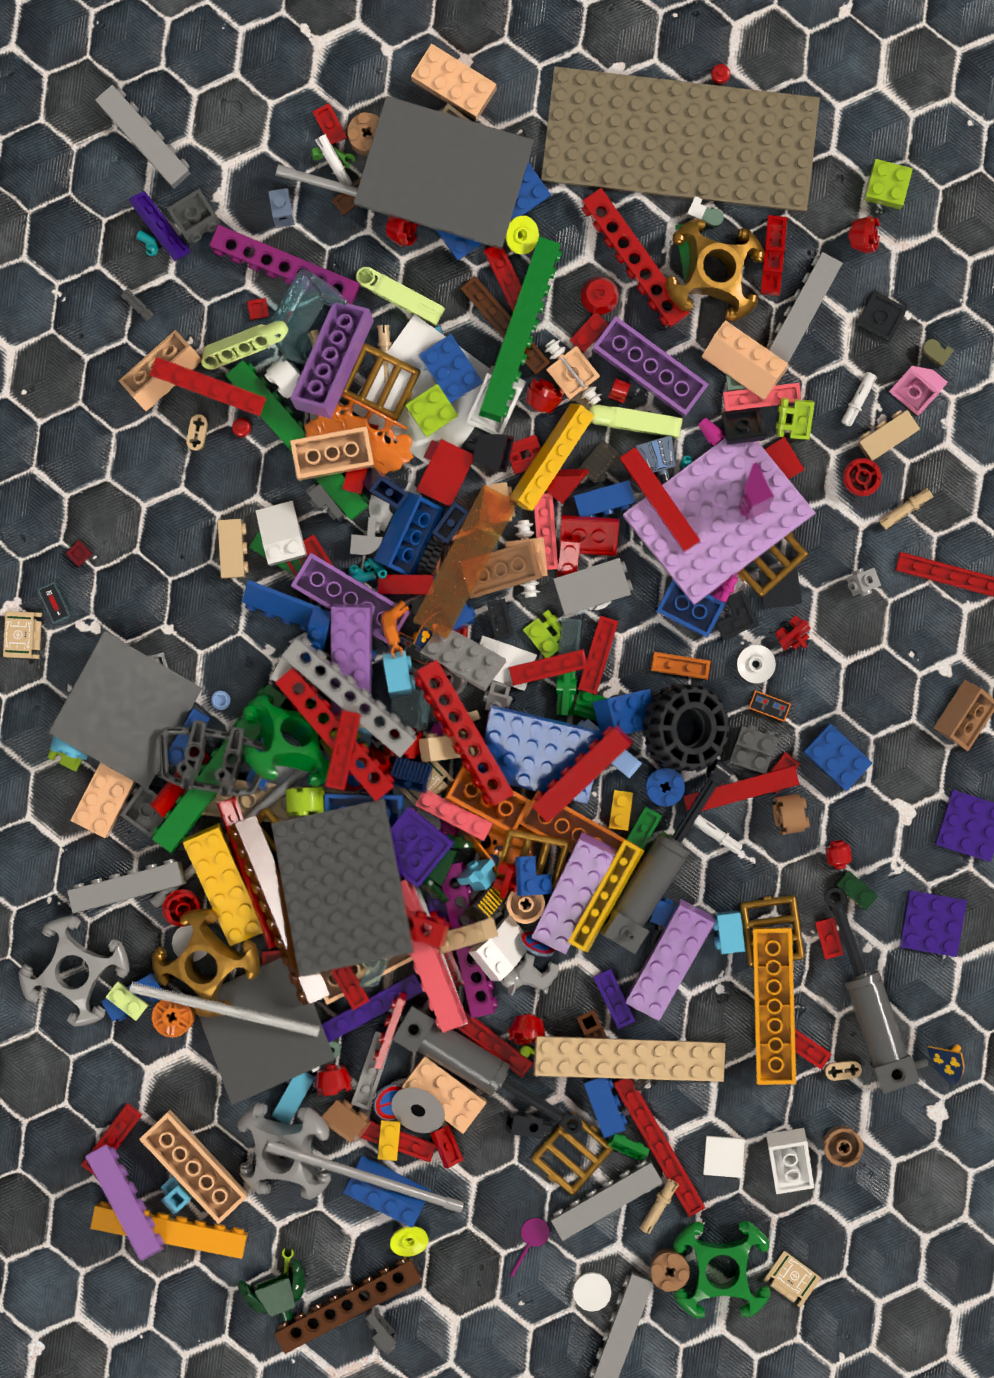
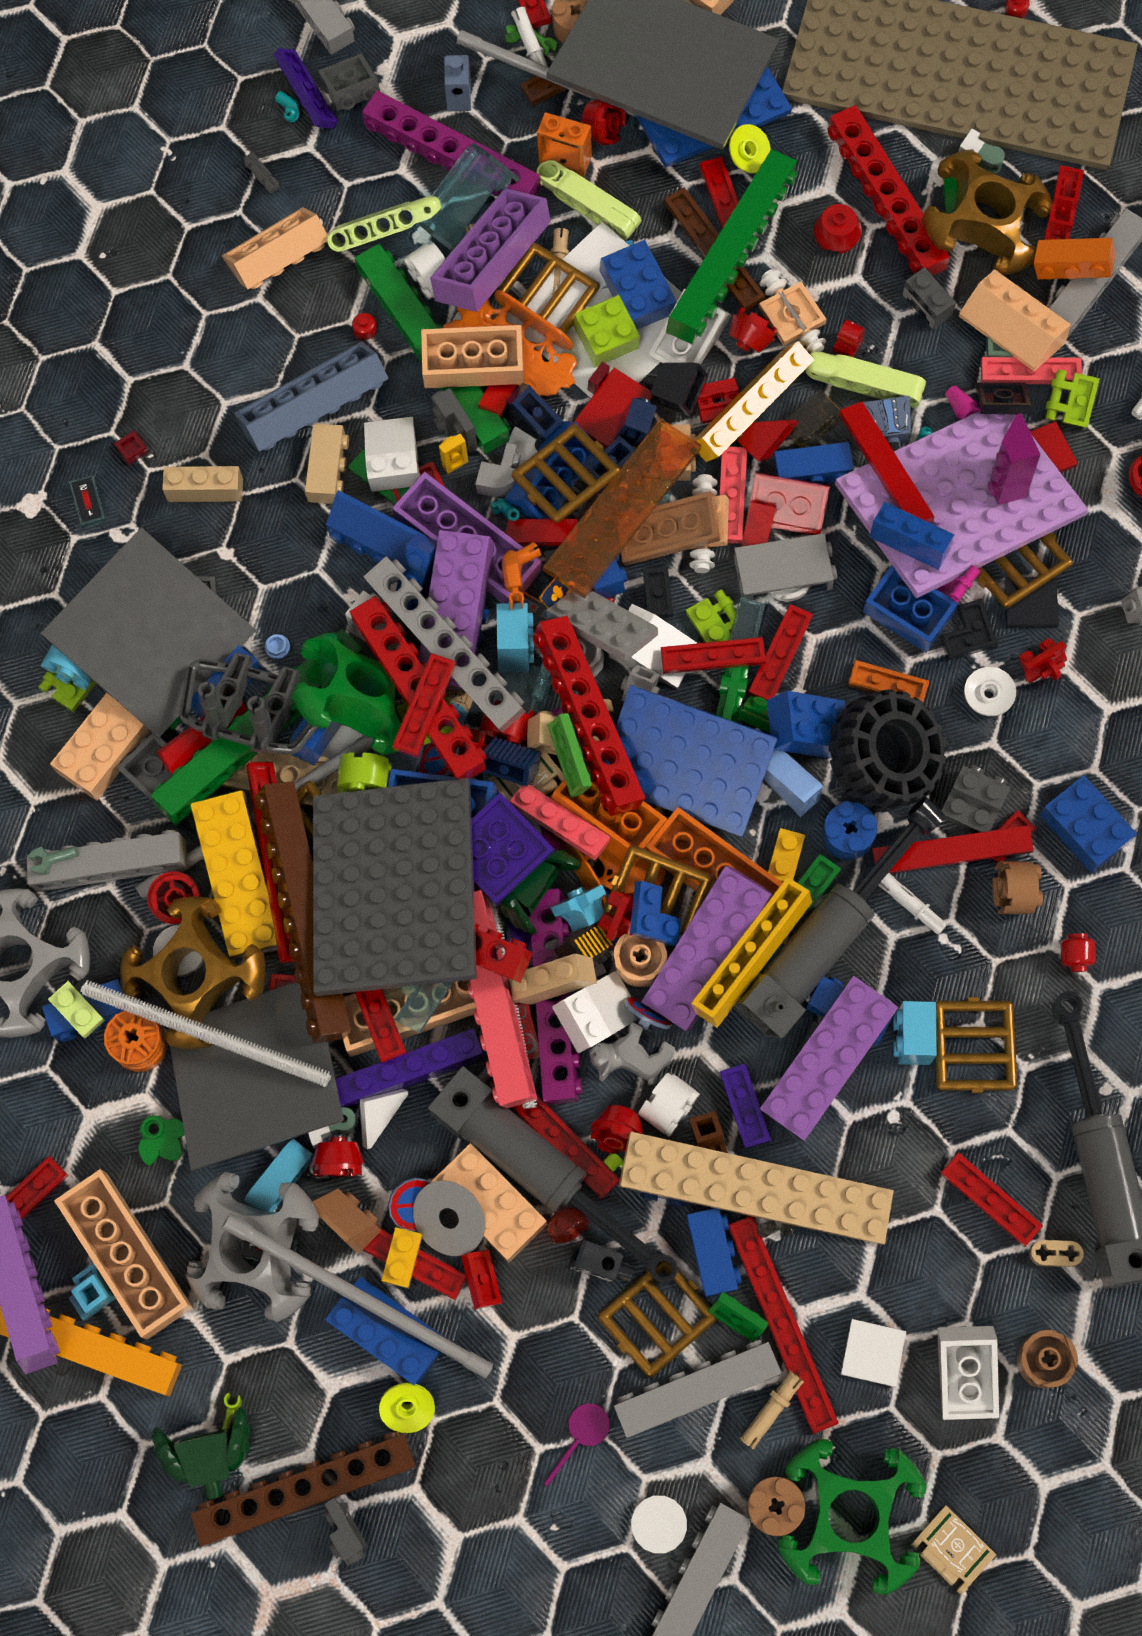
camera: 15 degrees right, 15 degrees down
(21, 634) = (38, 535): tan piece -> none
(86, 892) = (50, 858): none -> sand green bar
(141, 579) = (203, 484): none -> tan brick
(201, 434) = (302, 323): tan beam -> none
(206, 1082) = (164, 1142): none -> green plate
(208, 386) = (329, 259): red brick -> none
(211, 498) = (311, 396): none -> sand blue brick
(258, 309) = (408, 192): red tile -> none
(328, 530) = (453, 453): none -> yellow plate
(355, 1040) = (377, 1113): none -> white tile
(361, 576) = (495, 519): teal arm -> none
(369, 1077) = (395, 1157): light grey plate -> none
(370, 252) = (575, 134): none -> orange window
(391, 1022) = (432, 1086): plate -> none
(395, 533) = (556, 445): none -> pearl gold bar
(454, 768) = (569, 755): none -> bright green plate
(465, 487) = (636, 421): none -> dark blue brick
(500, 1101) = (567, 1225): none -> clear red hair
(560, 1007) = (669, 1103): none -> white brick
(585, 770) = (740, 783): red brick -> none
(589, 333) = (820, 271): red plate -> none
(650, 366) = (892, 314): medium lavender brick -> none
(677, 346) = (929, 298): none -> dark grey brick
(685, 561) = (911, 535): none -> blue brick
(769, 706) = (1002, 749): tile -> none
(774, 1005) = (969, 1142): light orange brick -> none
(786, 305) = (1074, 258): none -> orange brick
(829, 938) = (1054, 1065): red plate -> none
(856, 890) = (1099, 1003): dark green brick -> none

